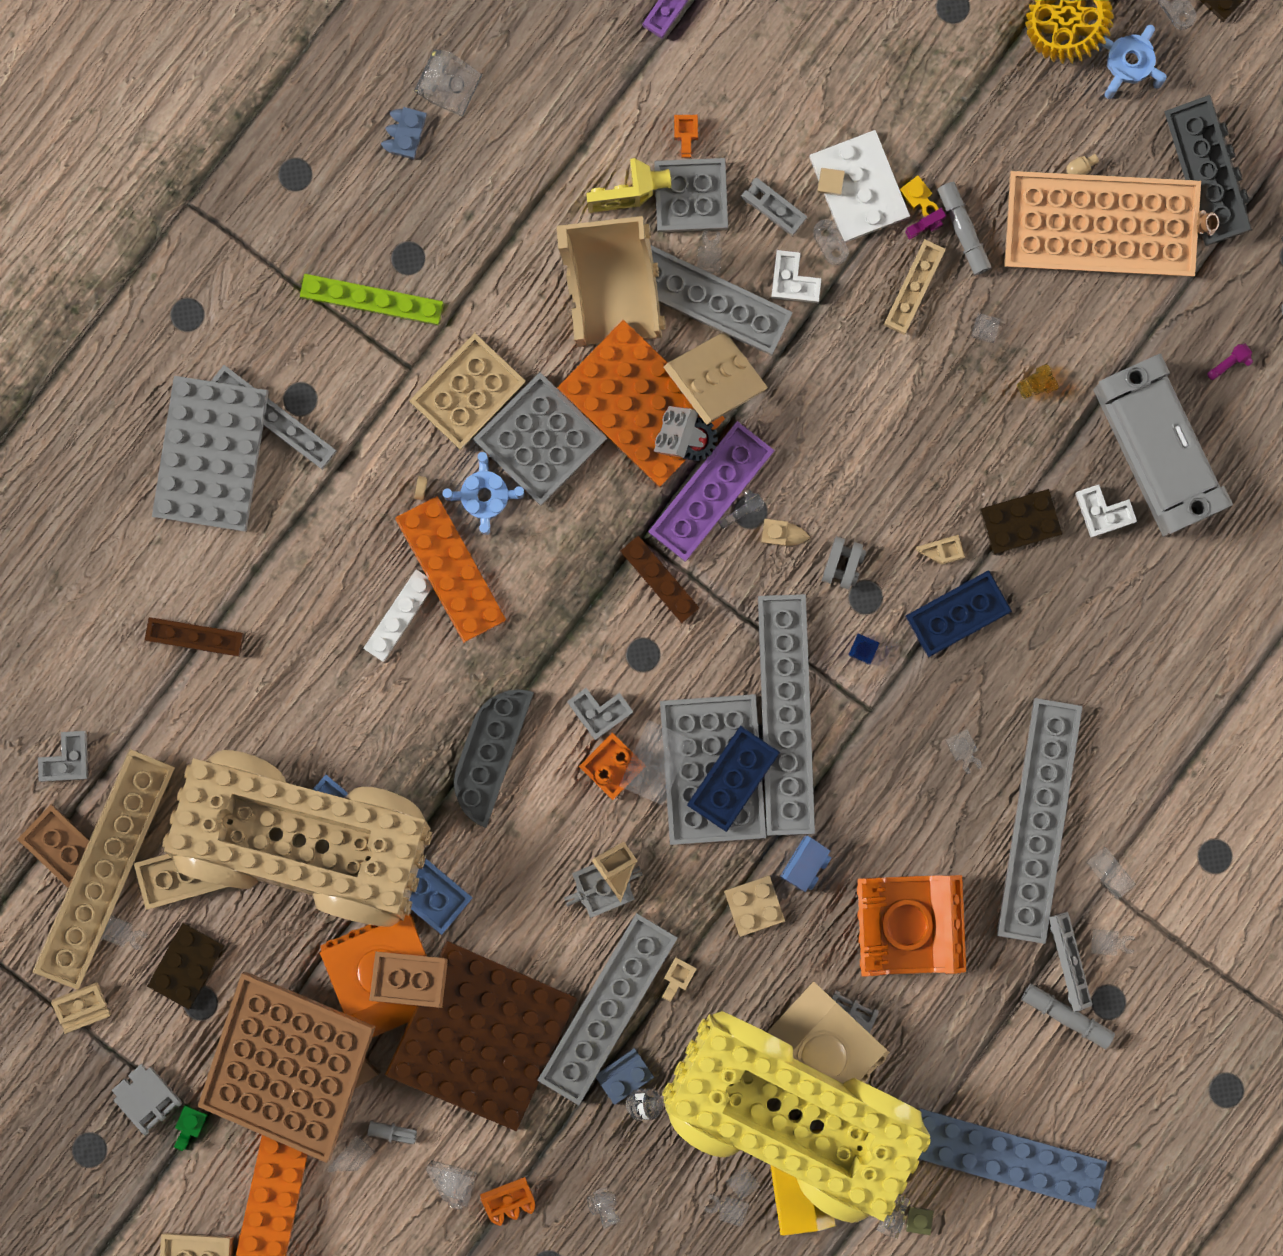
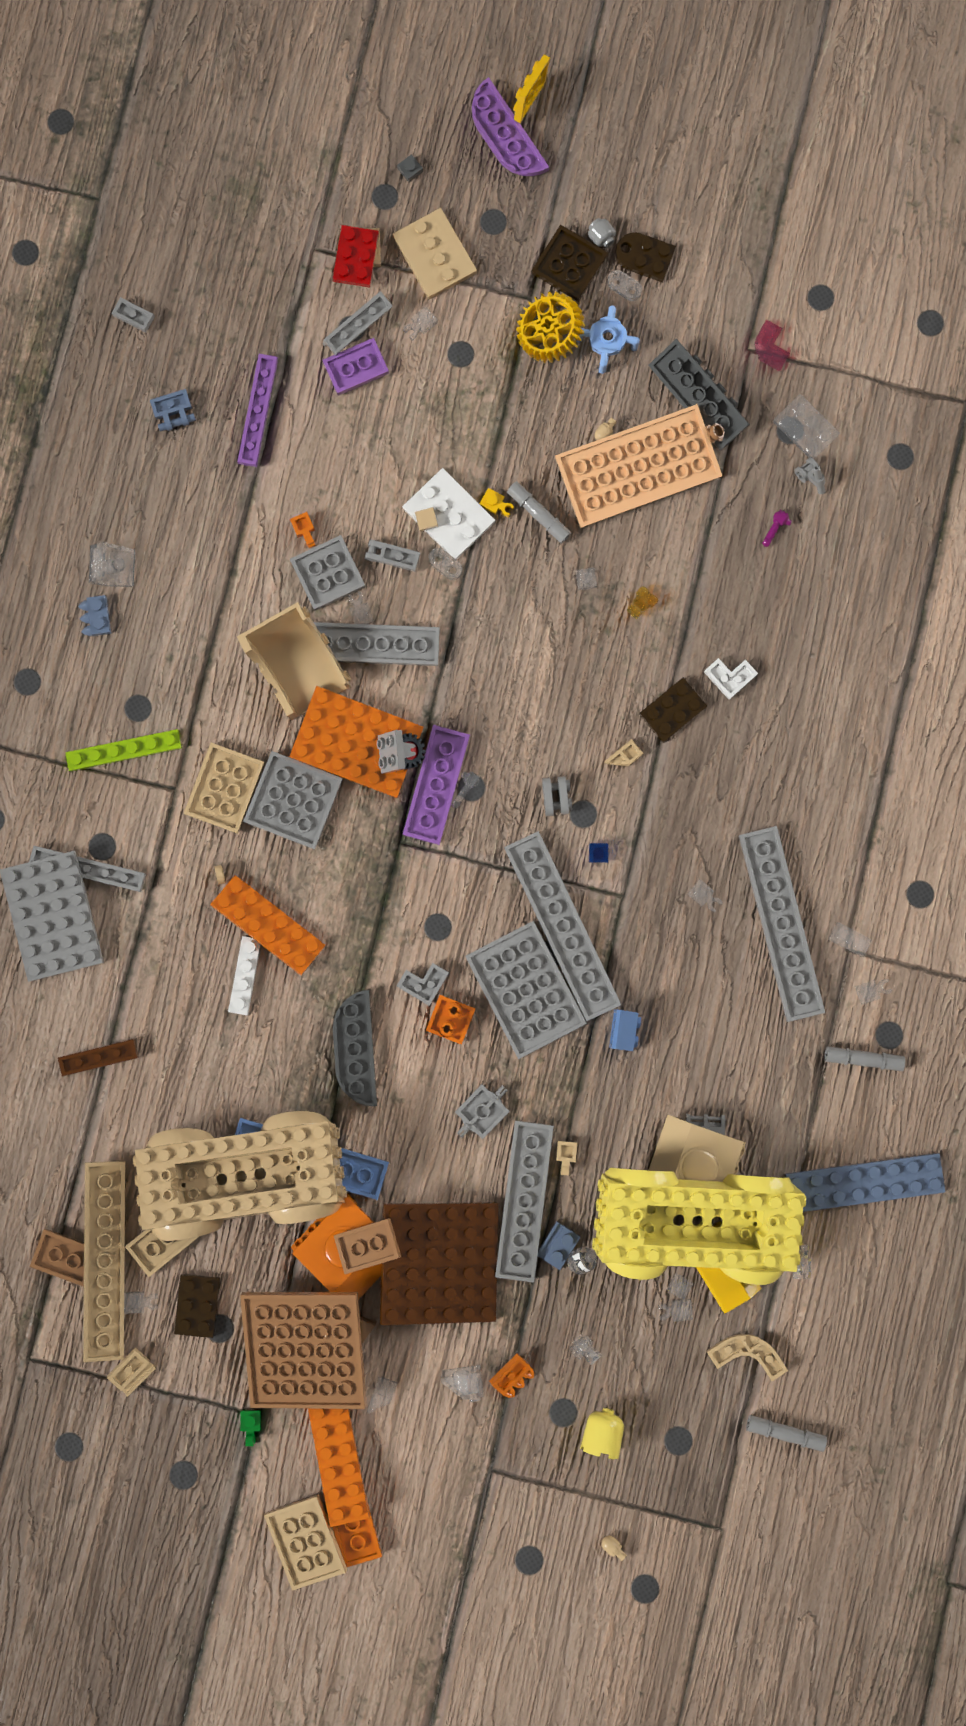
camera: 25 degrees left, 0 degrees up
(72, 763) = (46, 1190): light grey plate -> none
(144, 1098) = (208, 1418): light grey plate -> none
(392, 1132) = (404, 1363): light grey axle -> none
(477, 482) = (258, 856): light blue plate -> none
(616, 867) = (486, 1094): tan slope -> none
(623, 196) = (280, 594): light yellow plate -> none
(655, 762) = (481, 1003): clear plate -> none
(659, 579) = (426, 866): reddish brown plate -> none
(715, 377) = (403, 699): tan plate -> none
(733, 778) = (544, 990): dark blue tile -> none
(754, 906) = (599, 1077): tan plate -> none
(782, 533) = (502, 793): tan plate -> none
(788, 284) = (428, 608): white plate -> none
(911, 925) = (721, 1041): orange panel -> none
(914, 287) = (521, 570): tan plate -> none
(919, 1220) = (821, 1257): olive plate -> none
(932, 222) = (512, 518): magenta plate -> none
(958, 613) = (656, 797): dark blue tile -> none
(1070, 961) = (849, 1017): light grey plate -> none
(1160, 445) = (751, 610): light grey piece -> none

